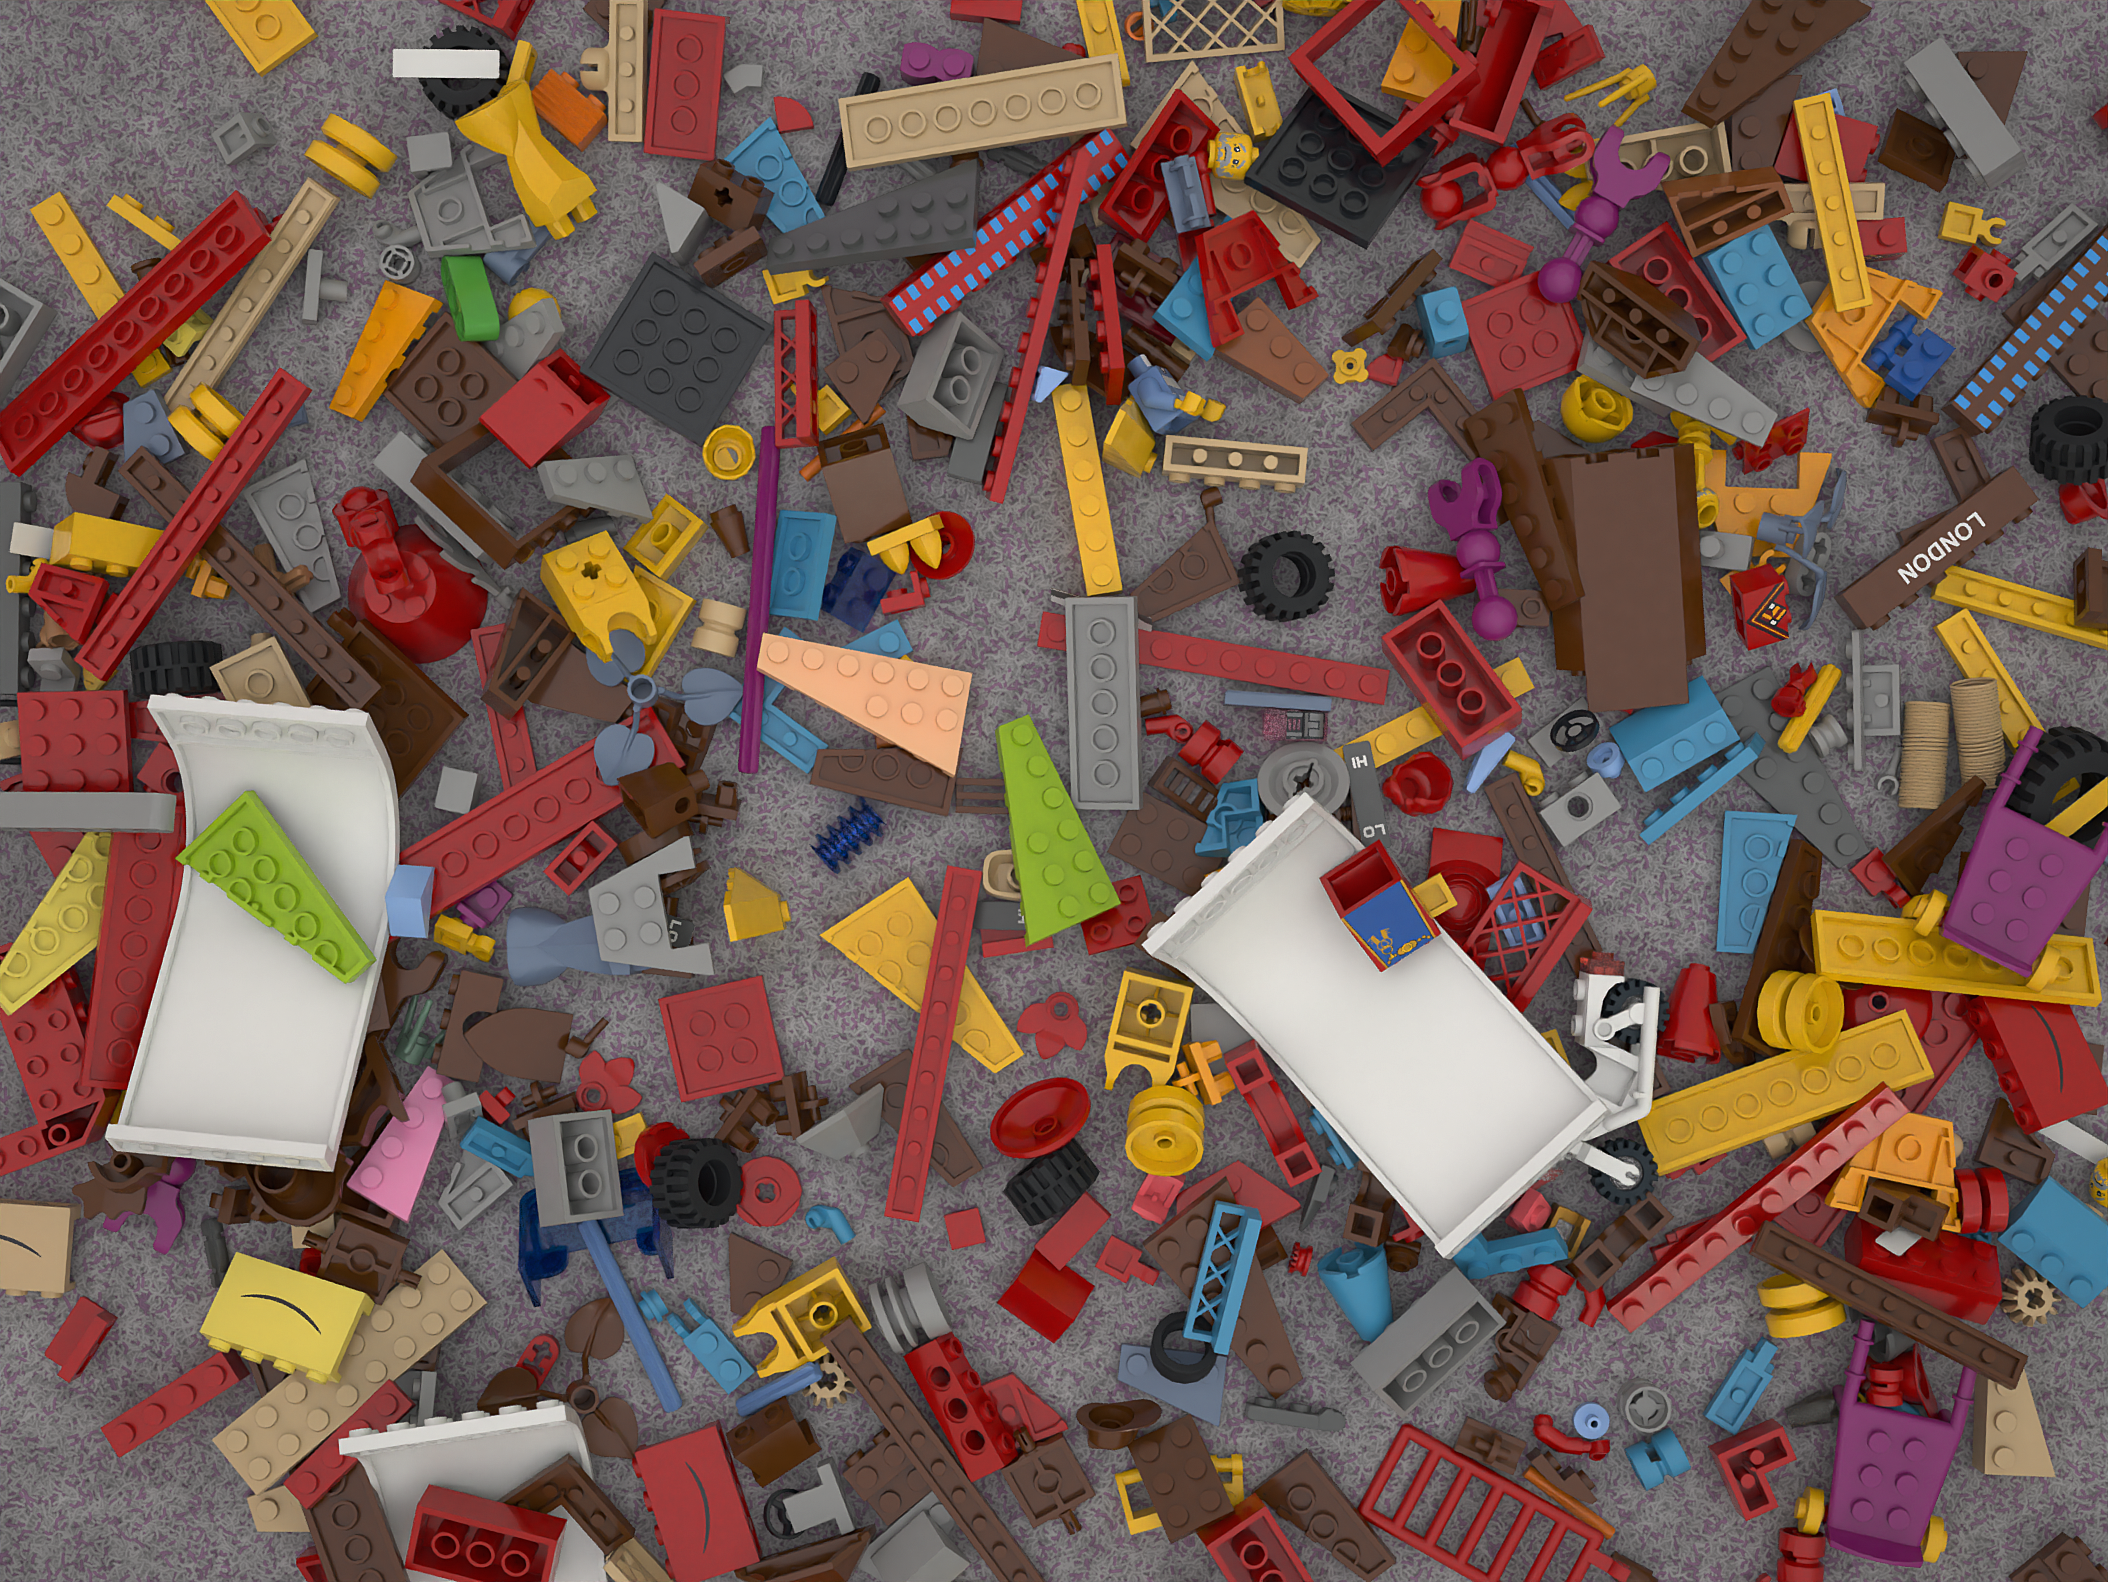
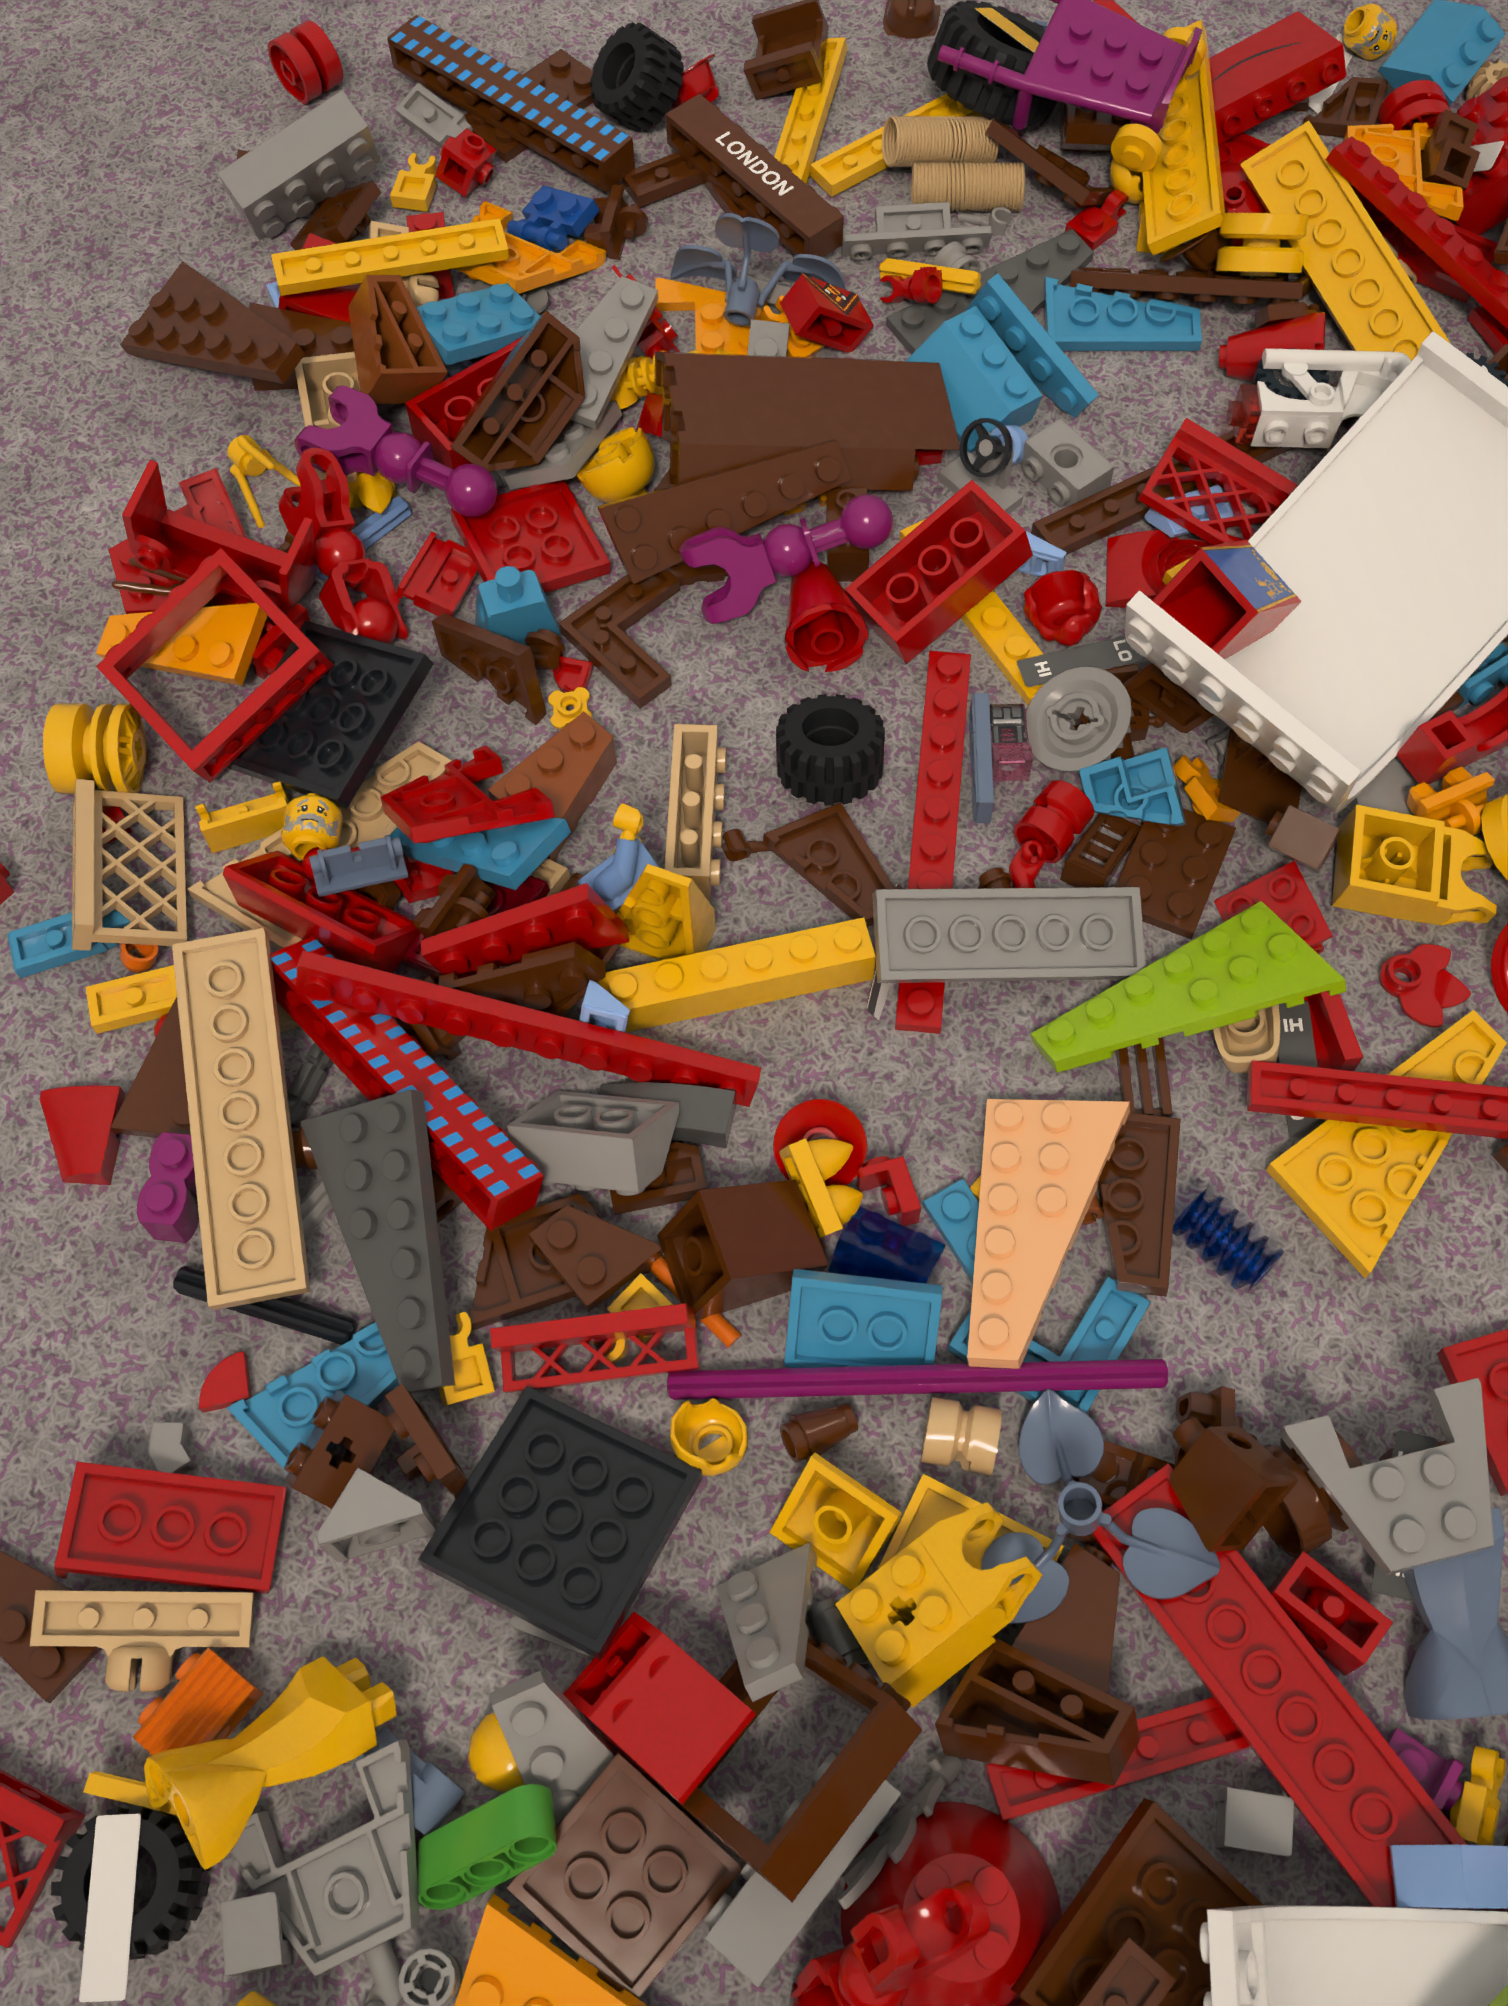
camera: 95 degrees left, 25 degrees down
(752, 907) = (1363, 1352): yellow wedge -> none
(1528, 770) = (1034, 511): yellow arm -> none

